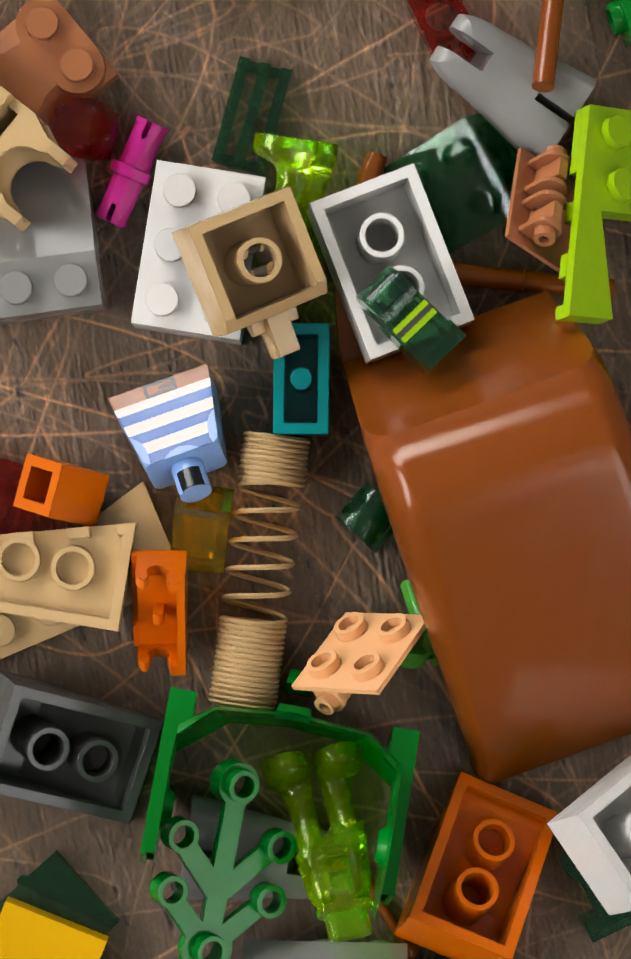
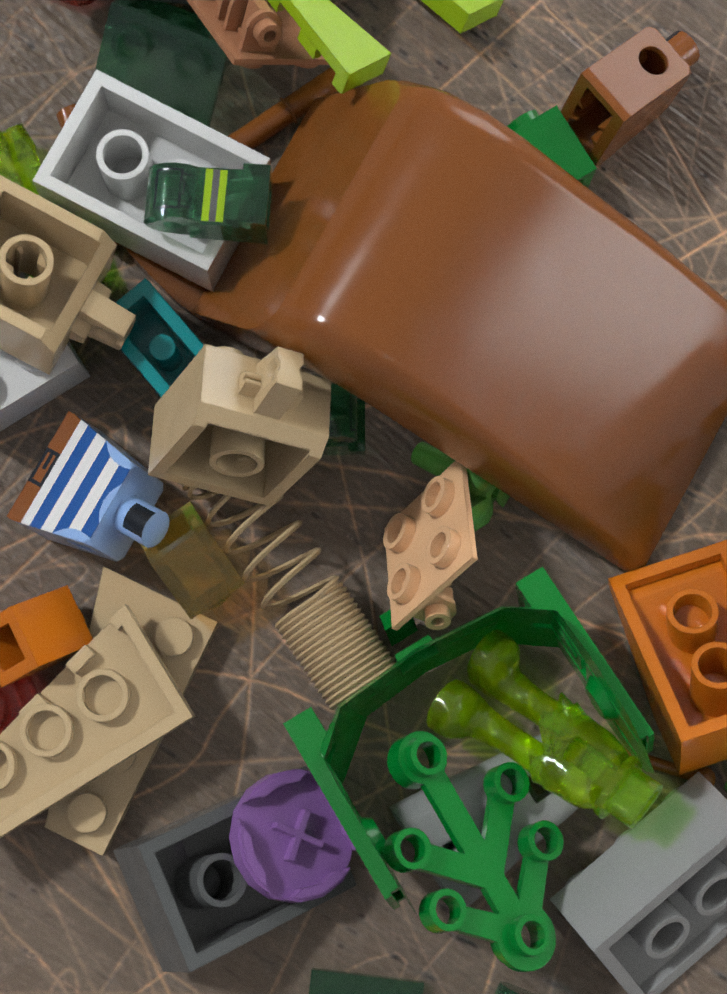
camera: 35 degrees left, 5 degrees down
(112, 759) = (289, 838): none -> medium lavender tile
(160, 607) = (214, 663): orange hinge -> none
(305, 479) = (241, 424): none -> tan hinge

